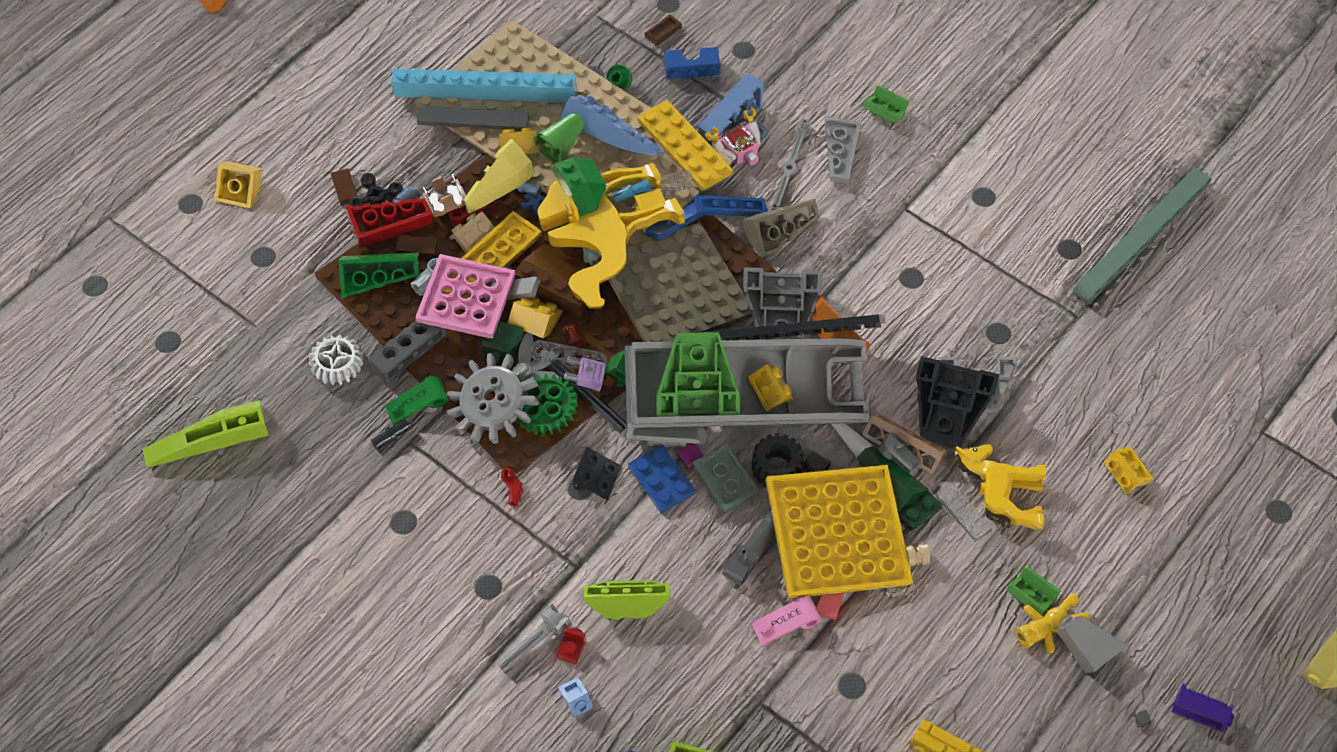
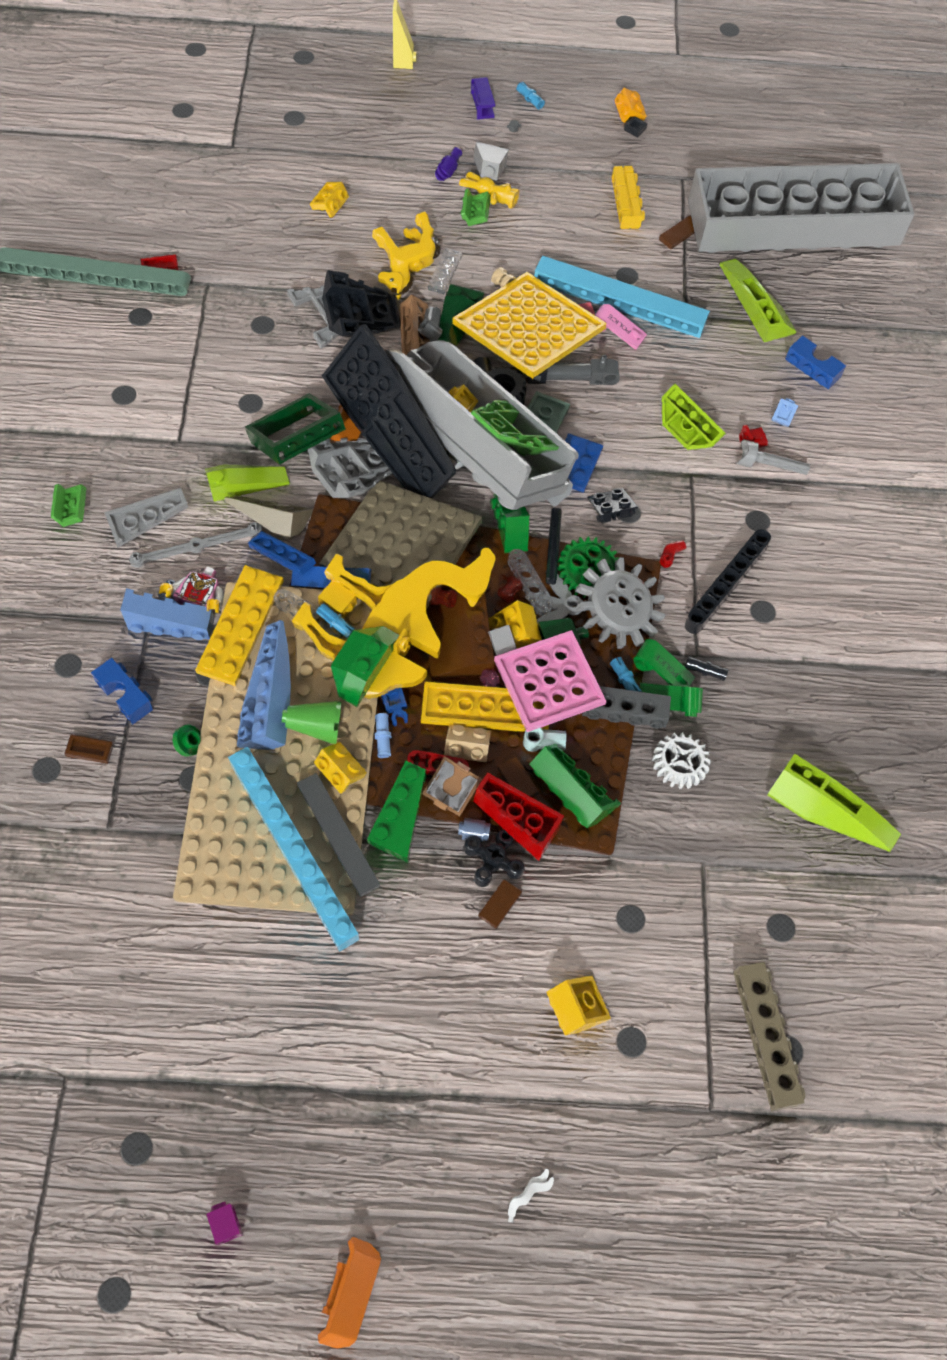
camera: 130 degrees left, 5 degrees up
(113, 273) = (778, 1097): none -> dark tan brick
(166, 100) = (535, 1184): none -> white hair
(380, 399) = (682, 698): none -> green door
(431, 366) = (624, 675): none -> dark azure pin
(452, 156) = (398, 818): none -> green wedge
(452, 515) = (724, 587): none -> black beam
(506, 174) = (392, 739): light yellow wedge -> none
(589, 373) = (540, 547): lavender piece -> none
(820, 273) = (300, 440): none -> dark green window
(820, 649) = (622, 296): none -> medium azure brick
(834, 222) = (243, 479): none -> lime wedge
(1113, 606) = (448, 165): none -> dark purple arm
(1124, 290) = (164, 262): none -> red tile

